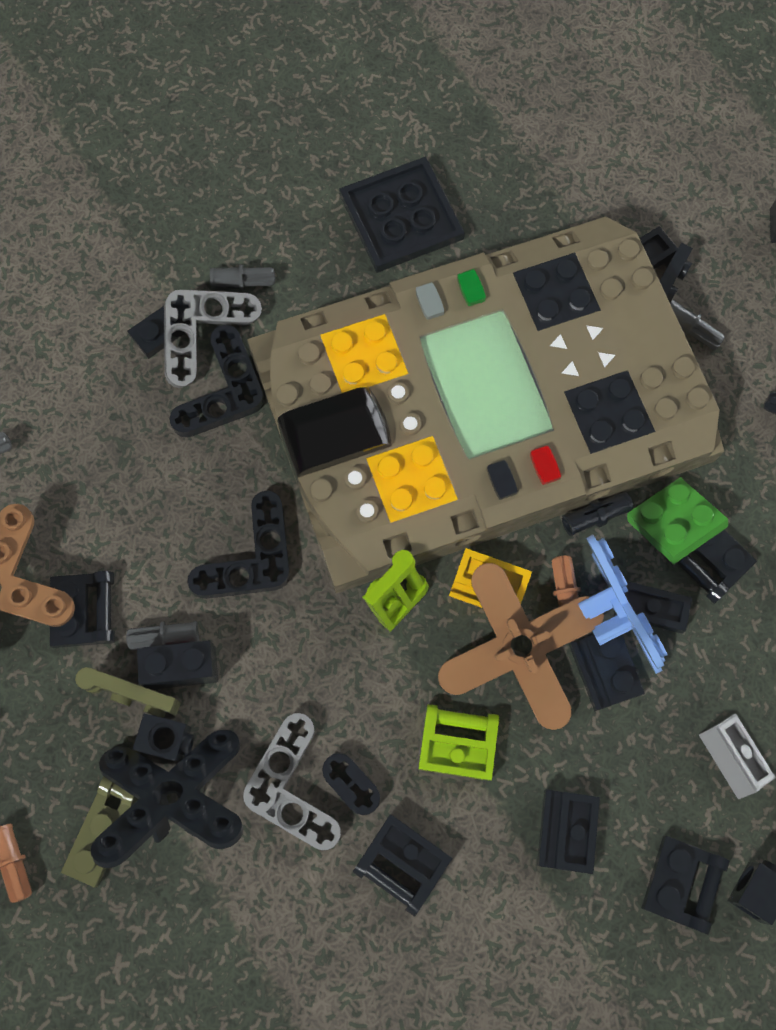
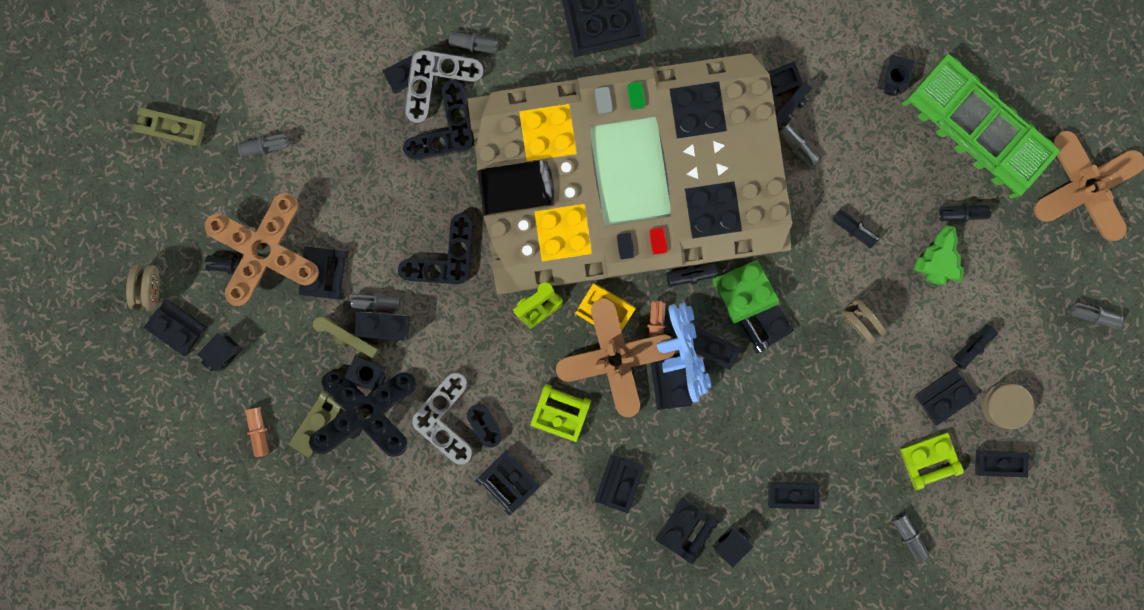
camera: 10 degrees right, 15 degrees up
(737, 756) = (743, 458): light grey slope -> none

